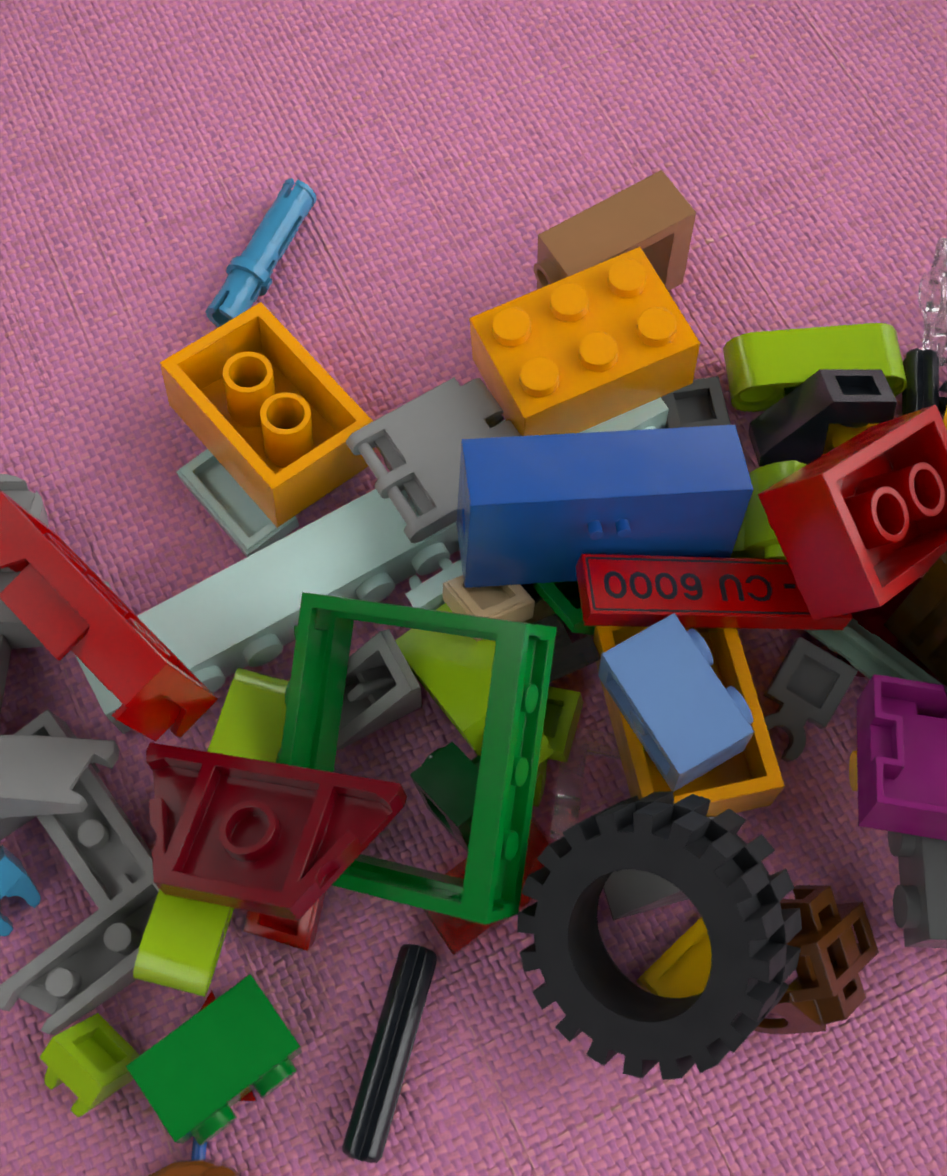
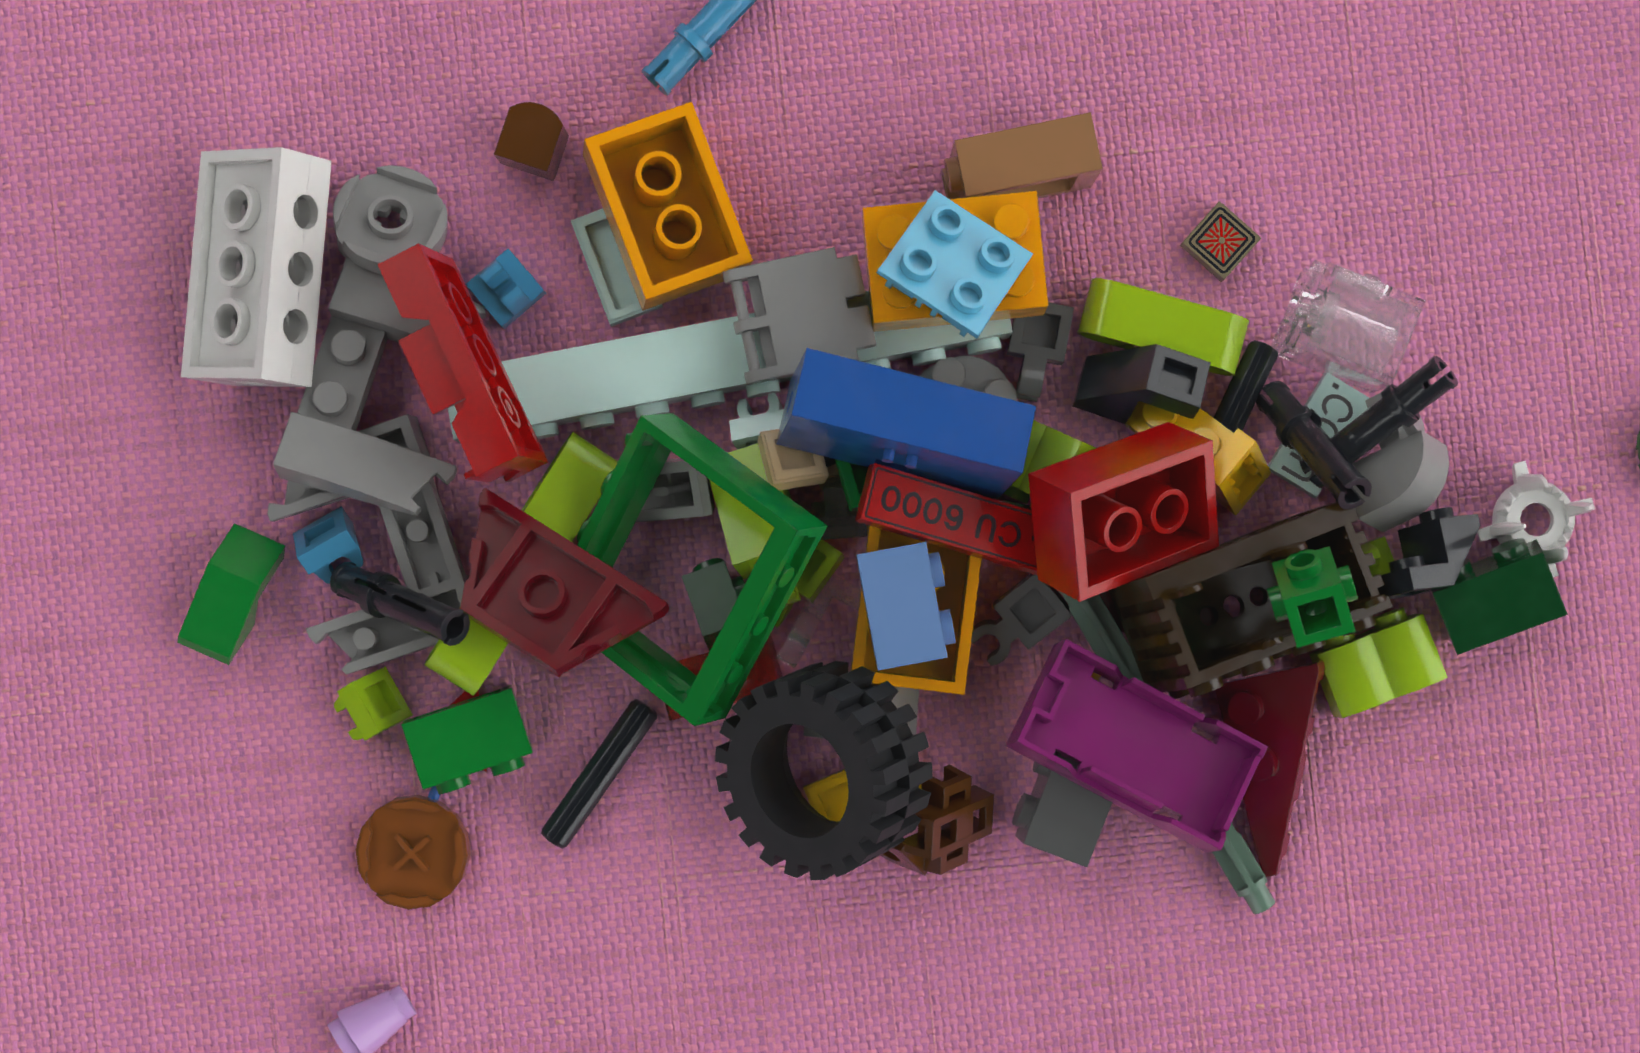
camera: 15 degrees right, 20 degrees up
(67, 915) = (384, 596): none -> black pin
(112, 405) = (532, 140): none -> reddish brown piece
(127, 557) = (506, 288): none -> dark azure tile
(588, 321) = (954, 264): none -> medium azure hinge
(830, 282) = (1220, 241): none -> tile

